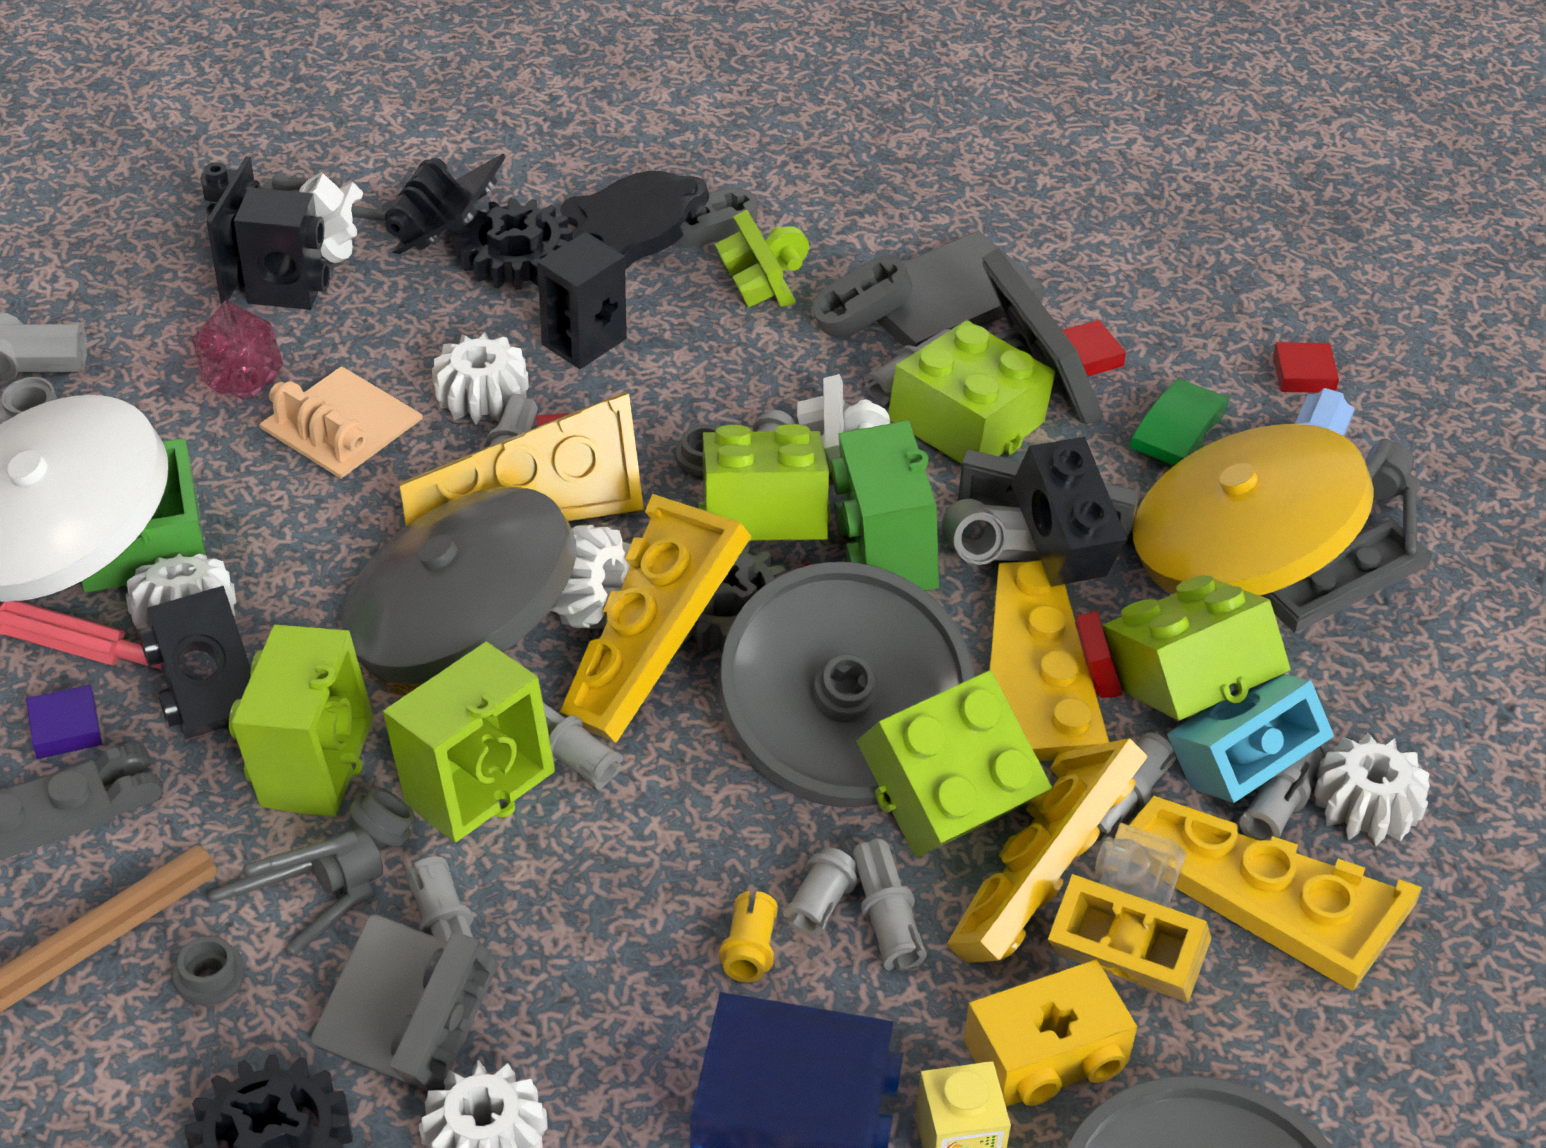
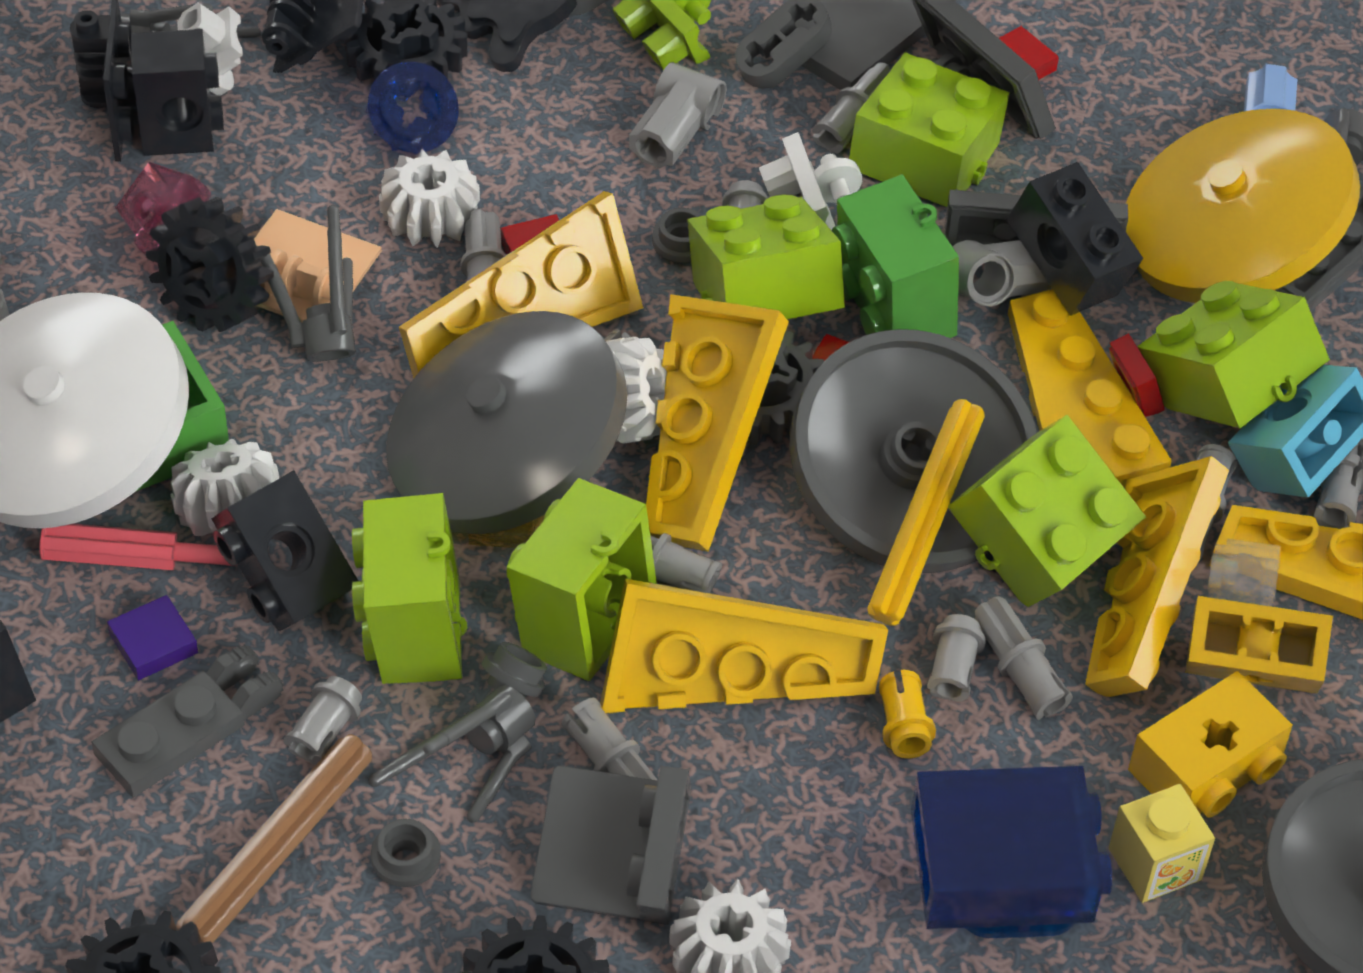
camera: 15 degrees left, 5 degrees up
(185, 827) = (325, 717): none -> light grey pin
(247, 397) = (209, 264): none -> black gear
(337, 476) = (328, 326): none -> dark grey plant
(491, 274) = (437, 101): none -> clear blue gear
(581, 835) = (715, 648): none -> yellow wing
(582, 299) = (511, 96): black brick -> none
(746, 336) = (680, 107): none -> light grey piece
(832, 744) = (925, 513): none -> yellow axle
(1179, 422) = (1133, 122): green slope -> none
(1305, 367) = (1233, 41): red tile -> none

